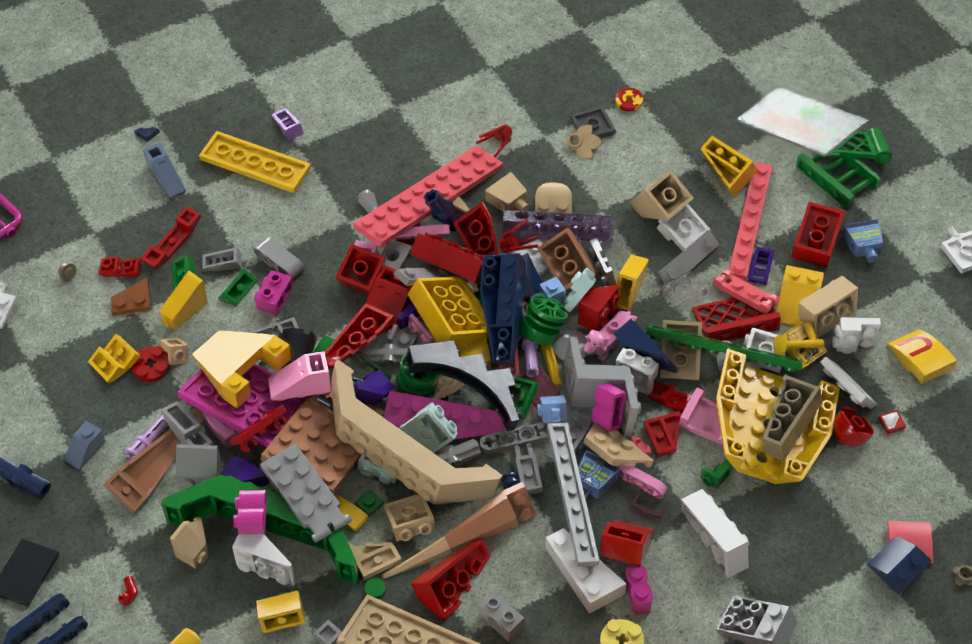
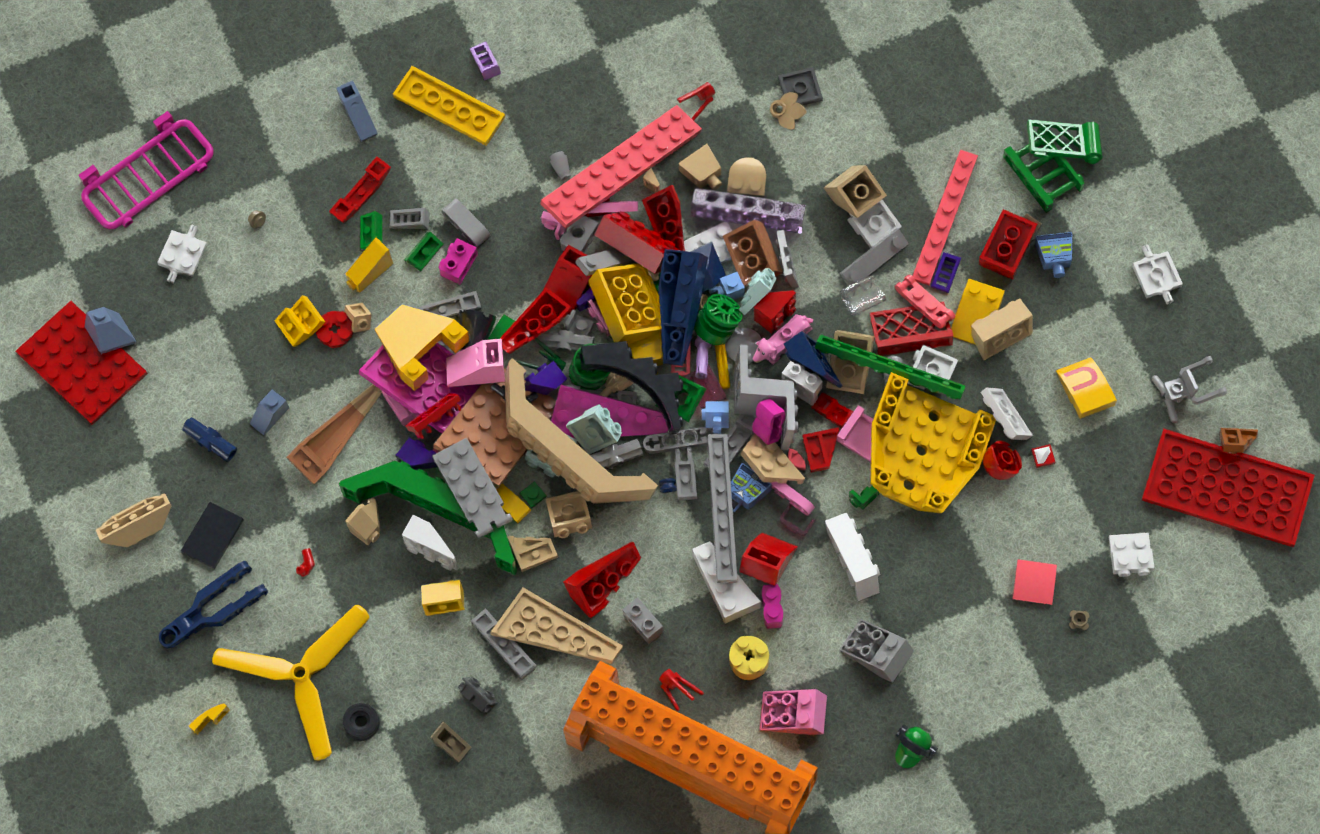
camera: 10 degrees right, 15 degrees up
(119, 268) = (308, 218): red slope -> none
(133, 299) = (319, 255): dark orange wing -> none
(147, 133) = (341, 60): dark blue tile -> none
(148, 438) = (327, 412): lavender pin -> none
(184, 425) = (366, 406): light grey slope -> none
(196, 464) = (374, 445): light grey slope -> none
(251, 512) = (421, 503): dark pink brick -> none
(360, 269) = (544, 245): red slope -> none
(375, 587) = (531, 581): green tile -> none
(441, 208) = (631, 186): dark blue piece -> none
(496, 517) = (651, 522): nougat plate -> none
(510, 243) = (696, 225): red plant -> none
(629, 93) = (842, 53): piece -> none
(630, 280) = (812, 279): yellow slope -> none
(729, 165) = (931, 155): yellow wedge -> none
(780, 344) = (945, 370): yellow piece -> none
(791, 414) = (943, 444): dark tan wedge -> none
(802, 121) = (1015, 108): clear piece -> none
(808, 355) = (969, 366): tile -> none
(854, 333) = (1019, 359): white plate -> none
(899, 563) = (1018, 604): dark blue slope -> none

